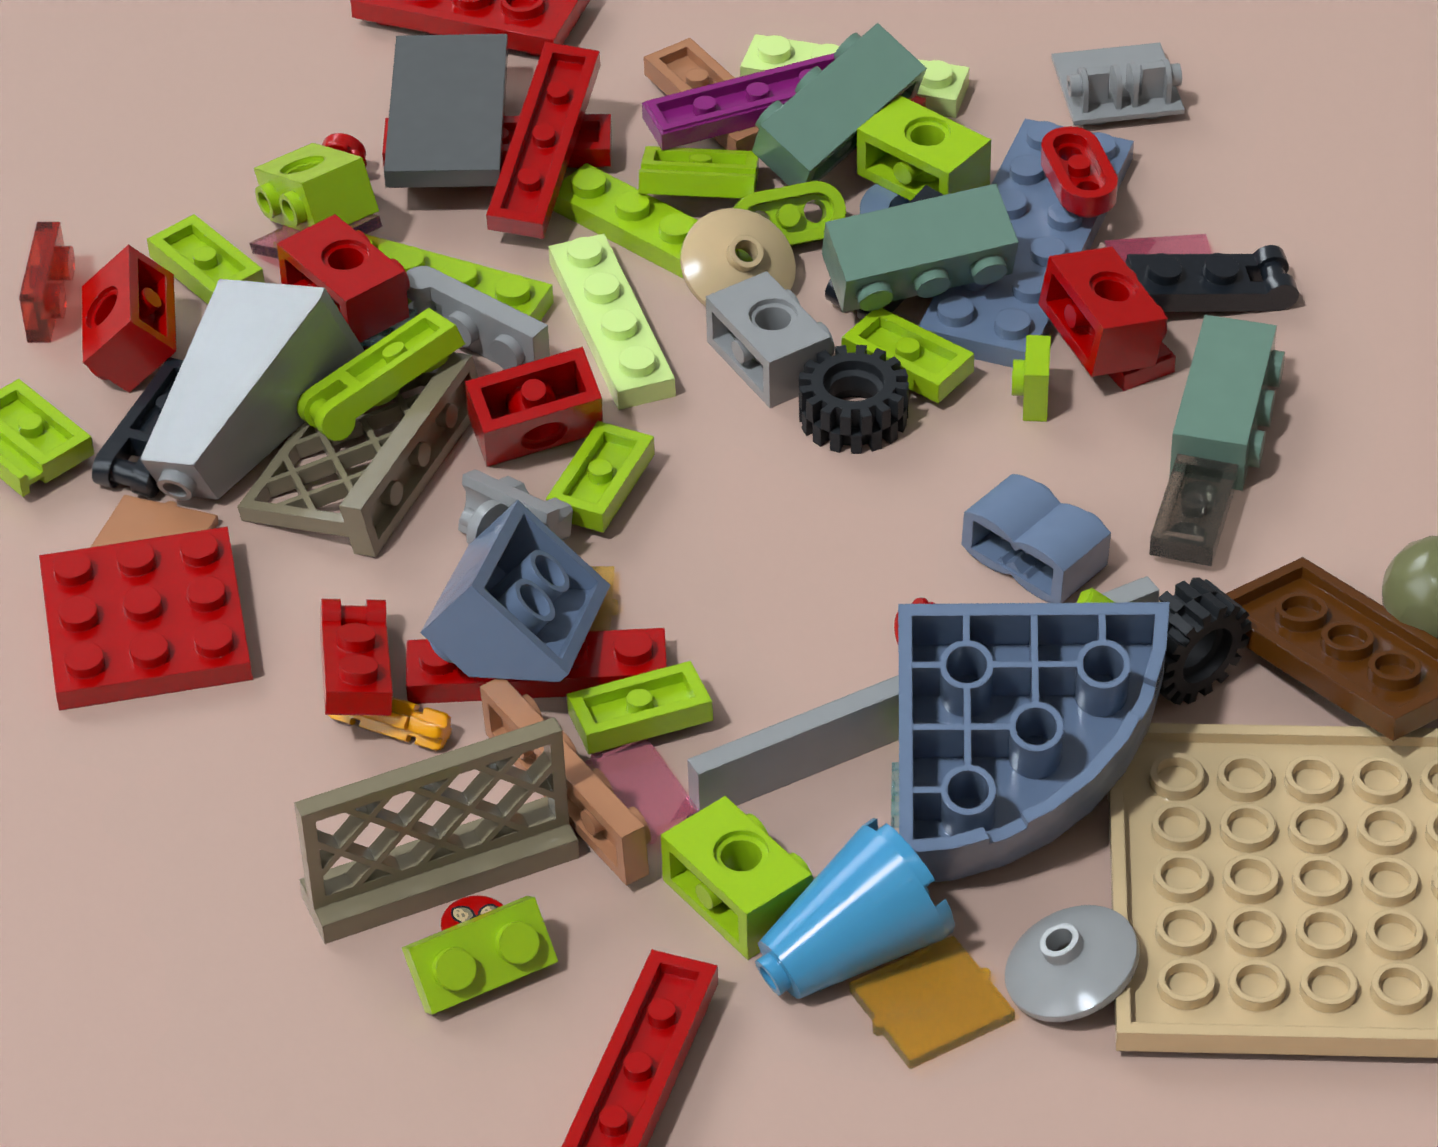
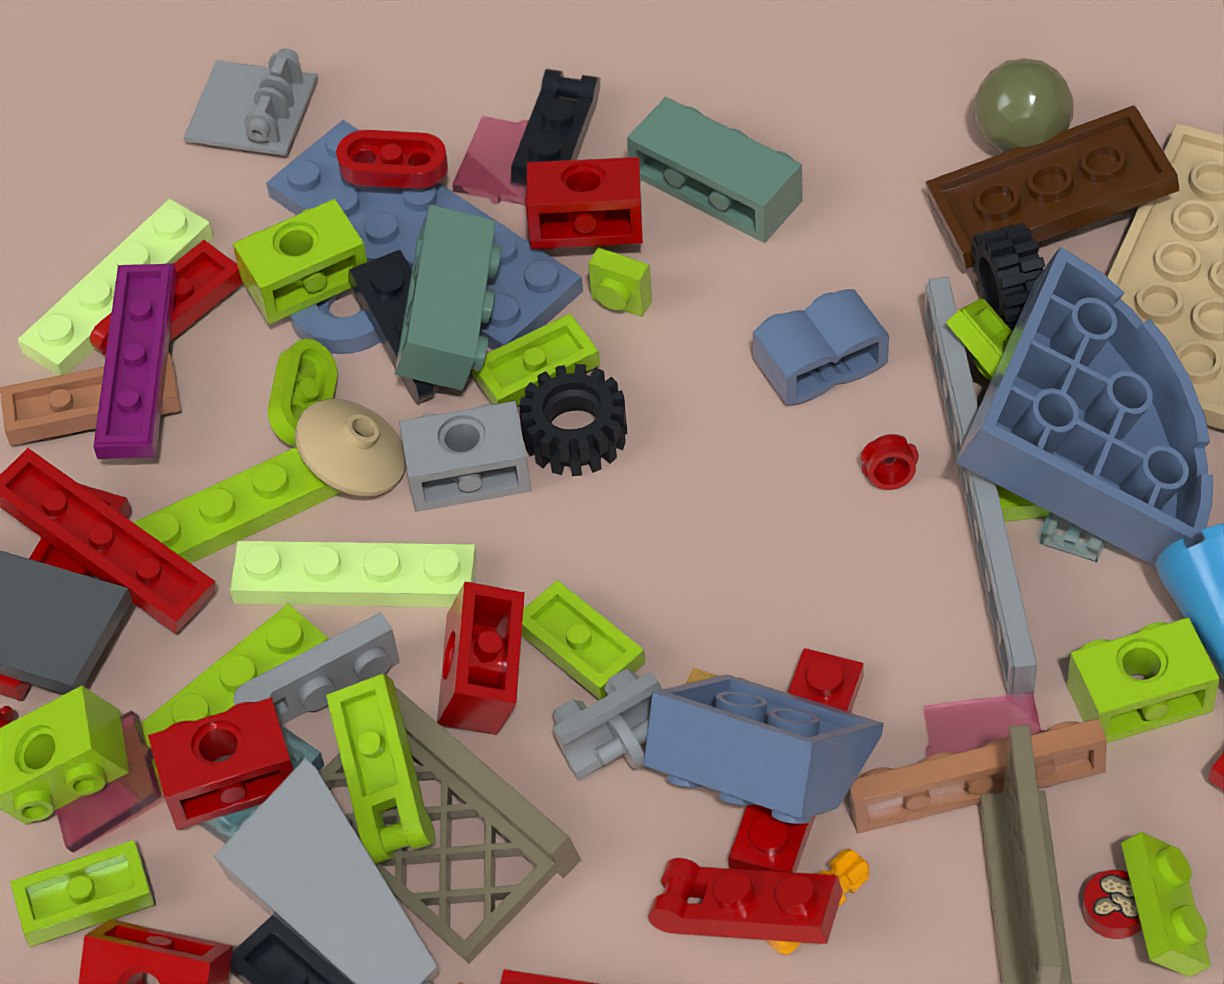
camera: 65 degrees left, 10 degrees up
(639, 707) = (900, 694): lime plate -> none
(698, 172) = (203, 438): lime plate -> none
(822, 118) = (210, 297): sand green brick -> none
(1194, 510) = (830, 233): clear smoke plate -> none

